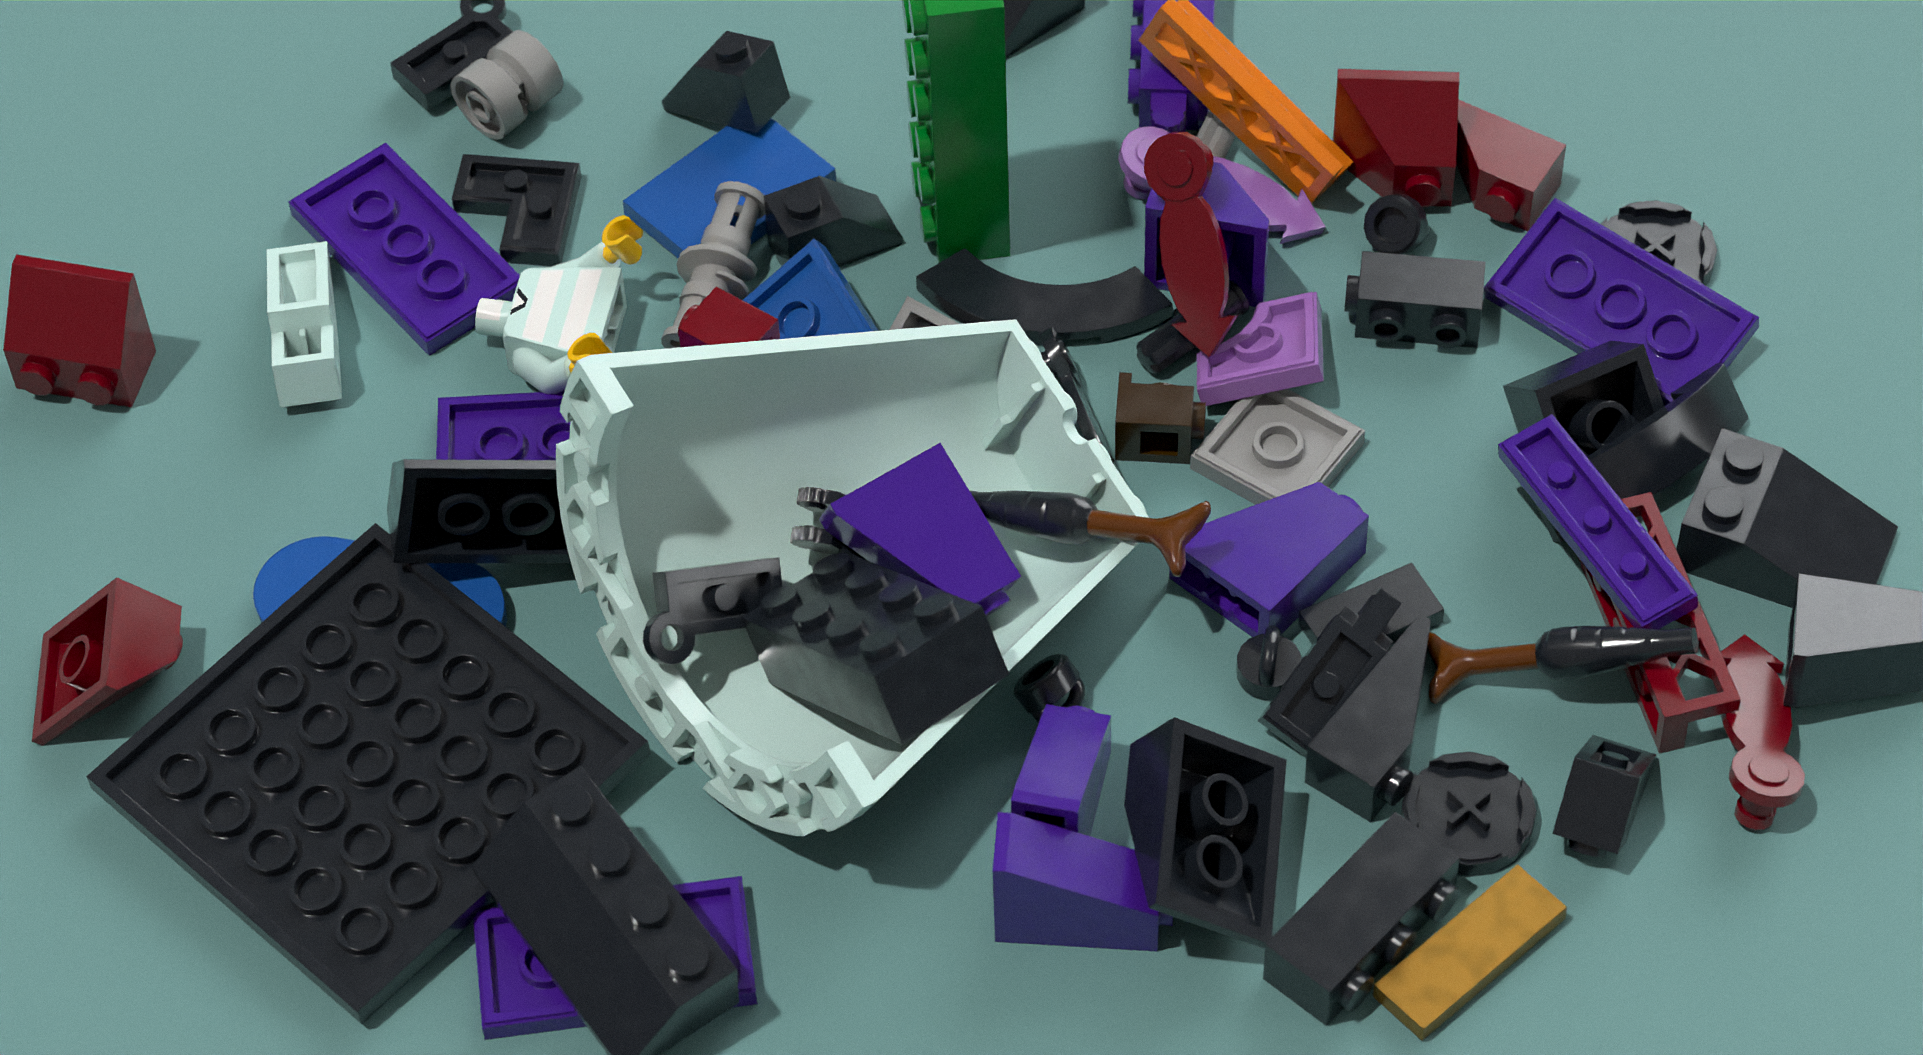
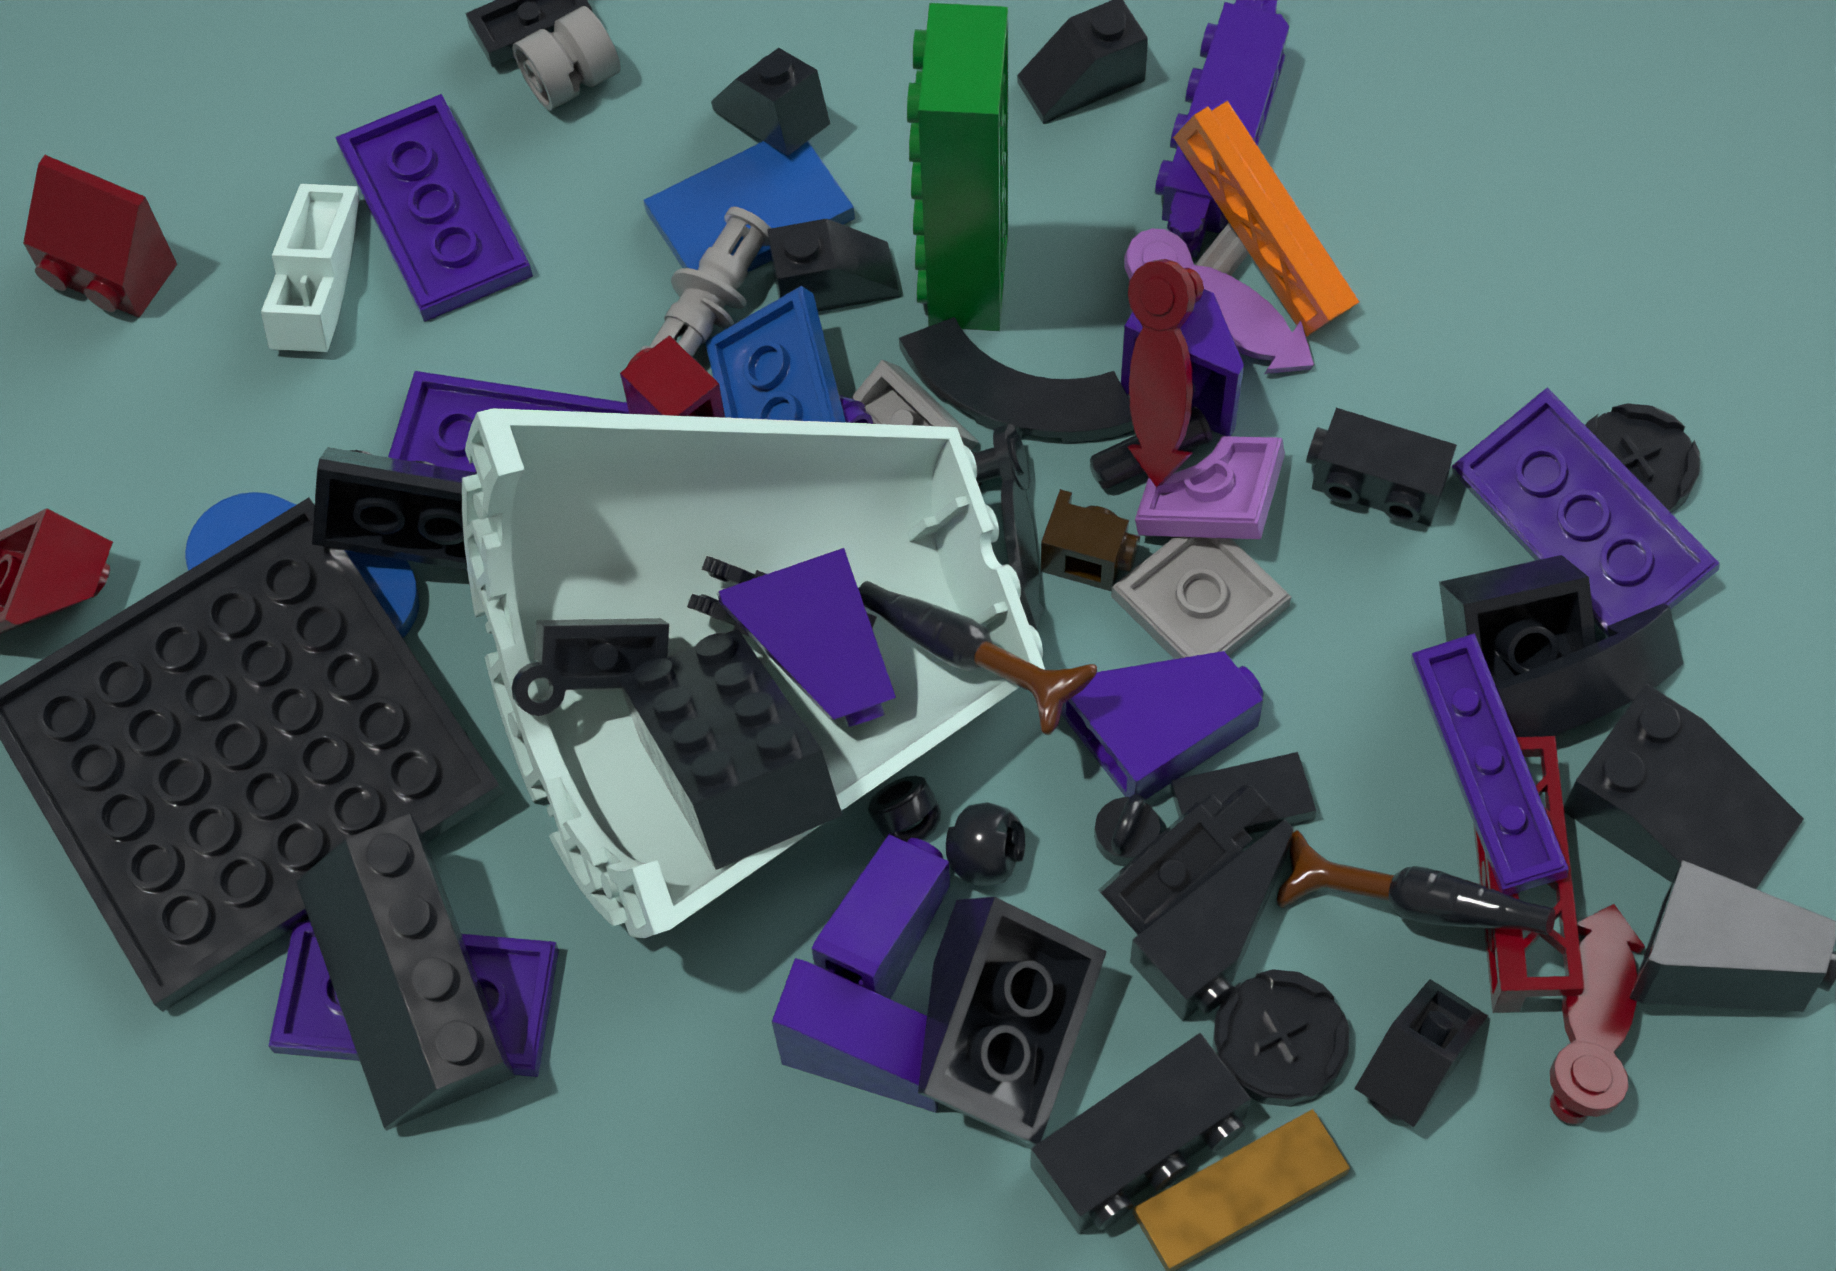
camera: 15 degrees right, 10 degrees up
(532, 195) = (565, 181): black tile -> none
(564, 310) = (554, 313): torso -> none
(1138, 697) = (985, 844): none -> black piece
(1396, 224) = (1382, 380): black tile -> none
(1400, 131) = (1410, 285): dark red slope -> none
(1506, 166) = (1509, 338): slope -> none

